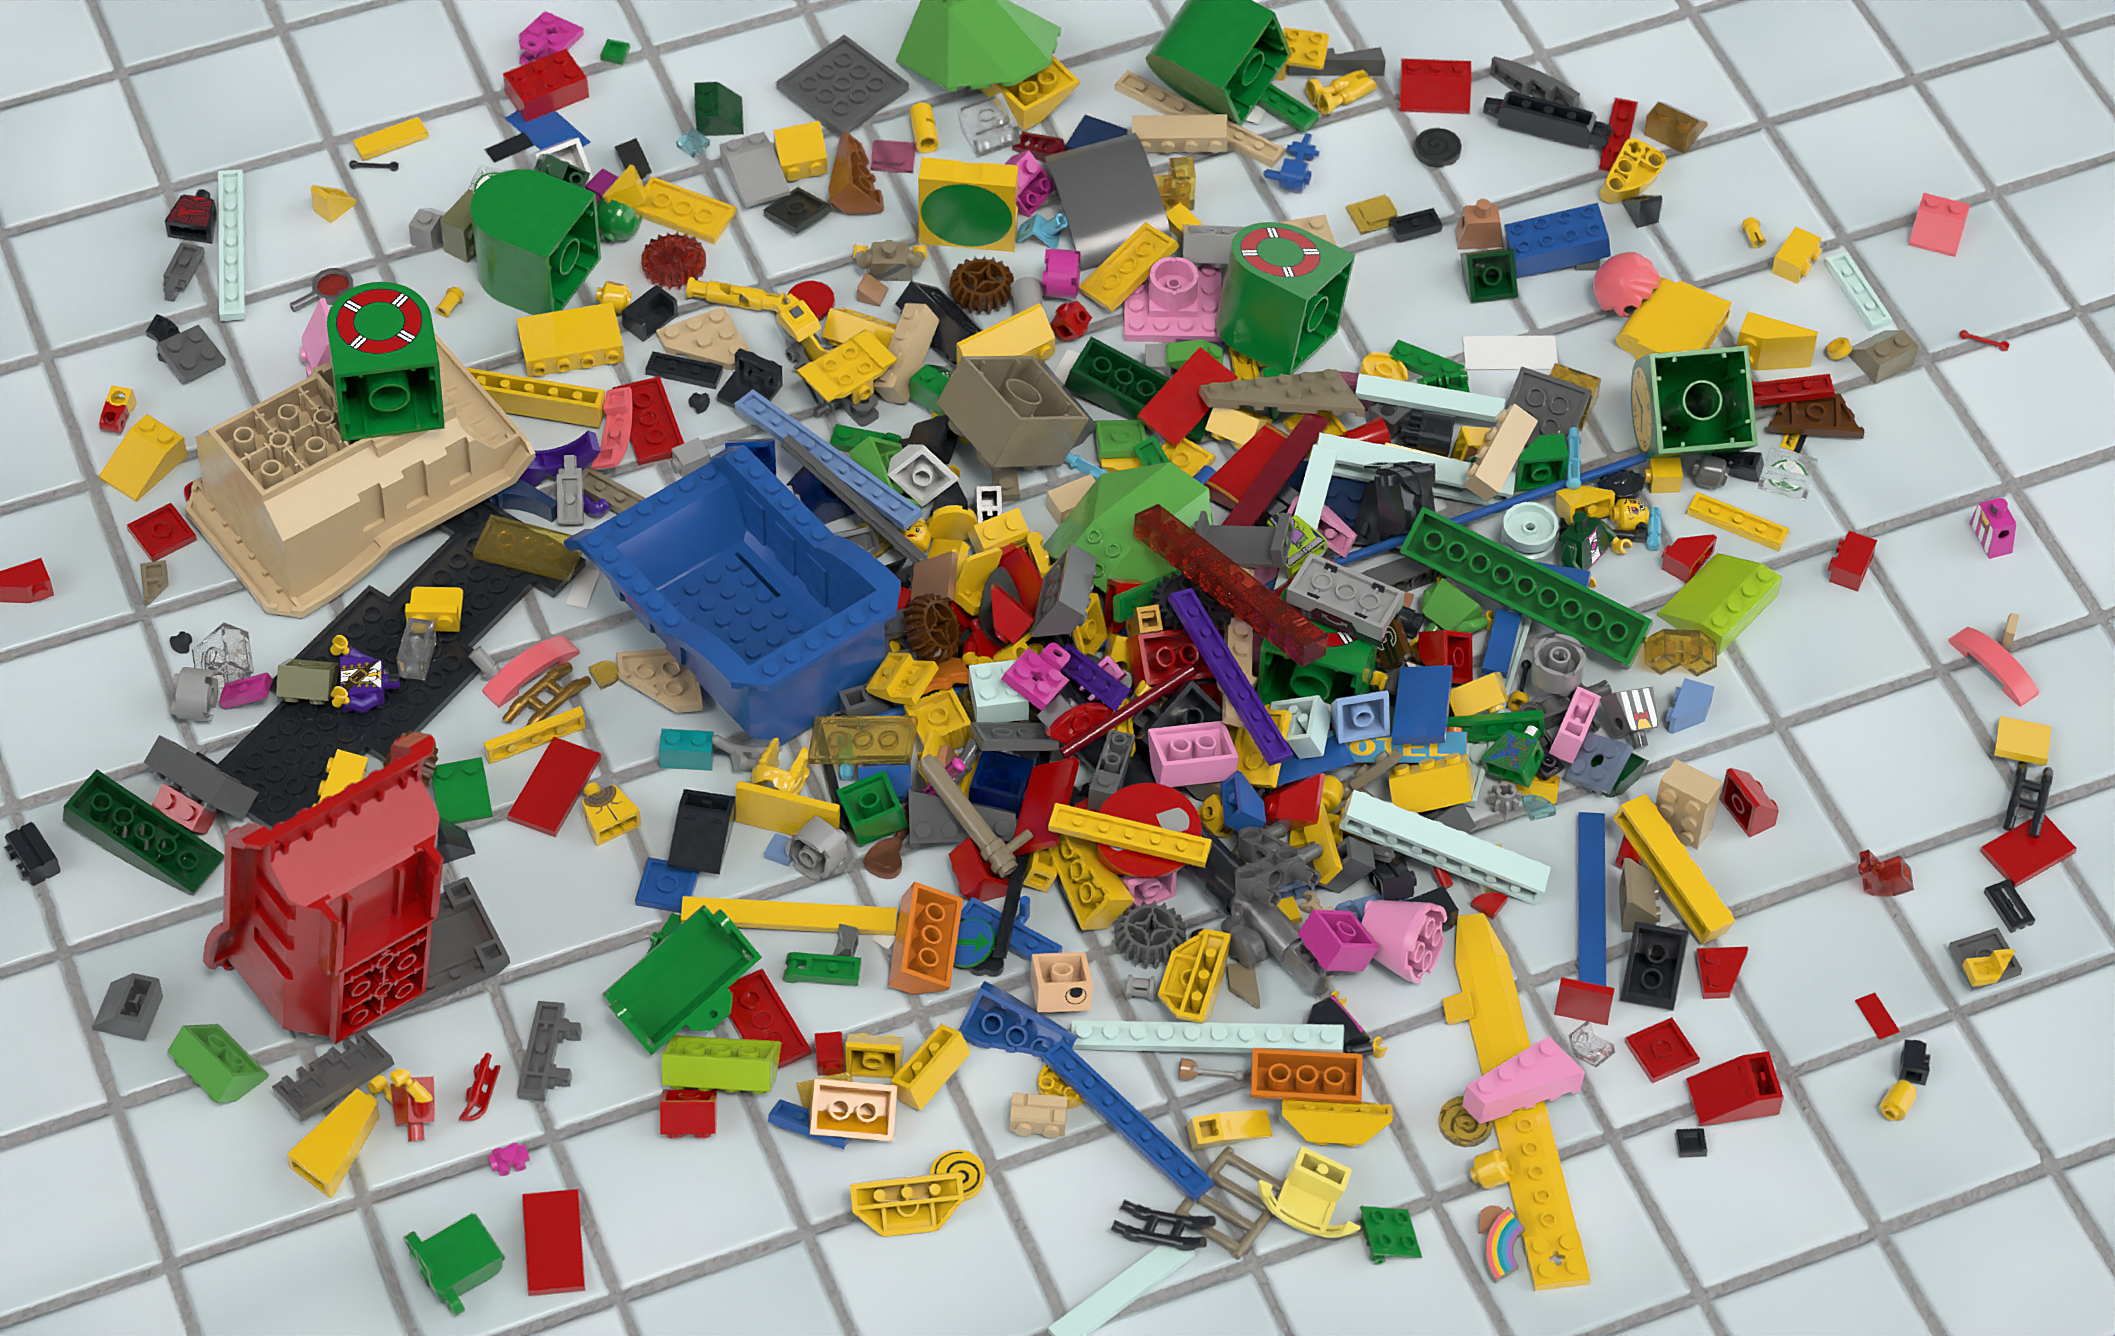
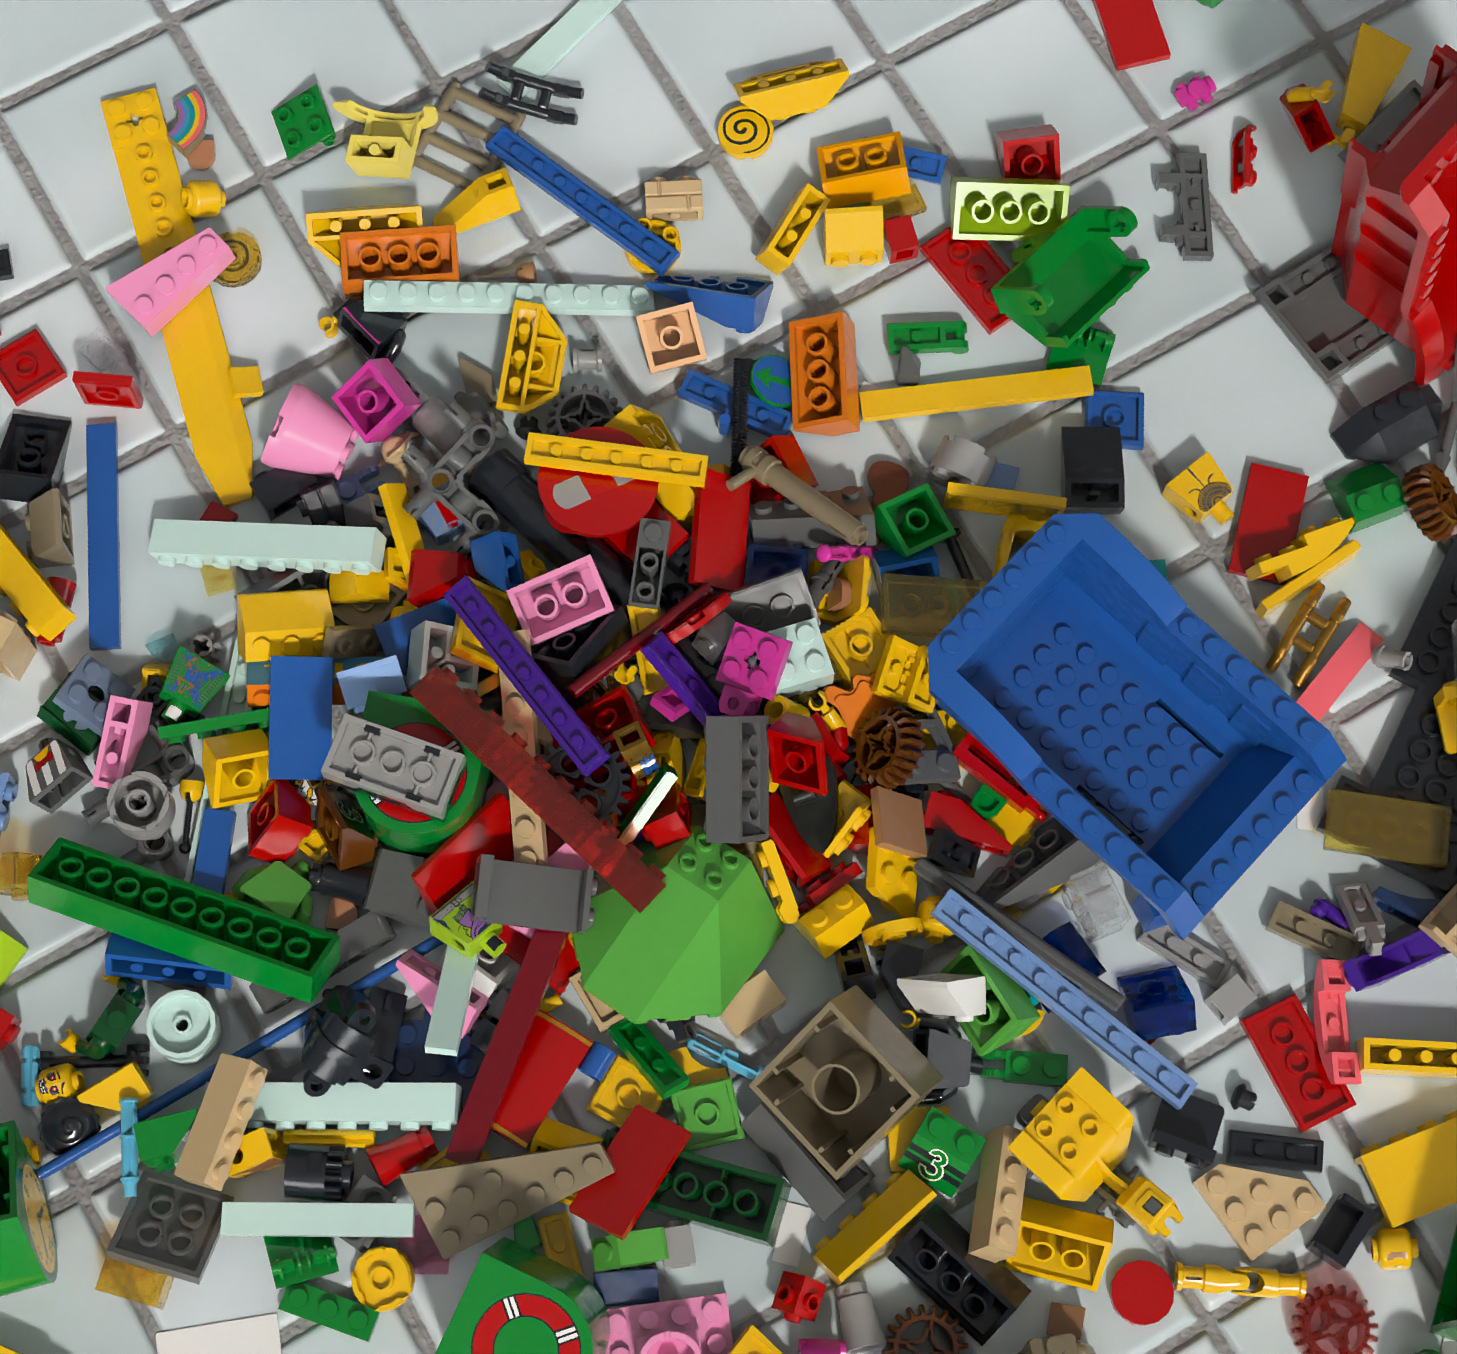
camera: 170 degrees right, 20 degrees up
(527, 748) = (1304, 551): none -> yellow slope

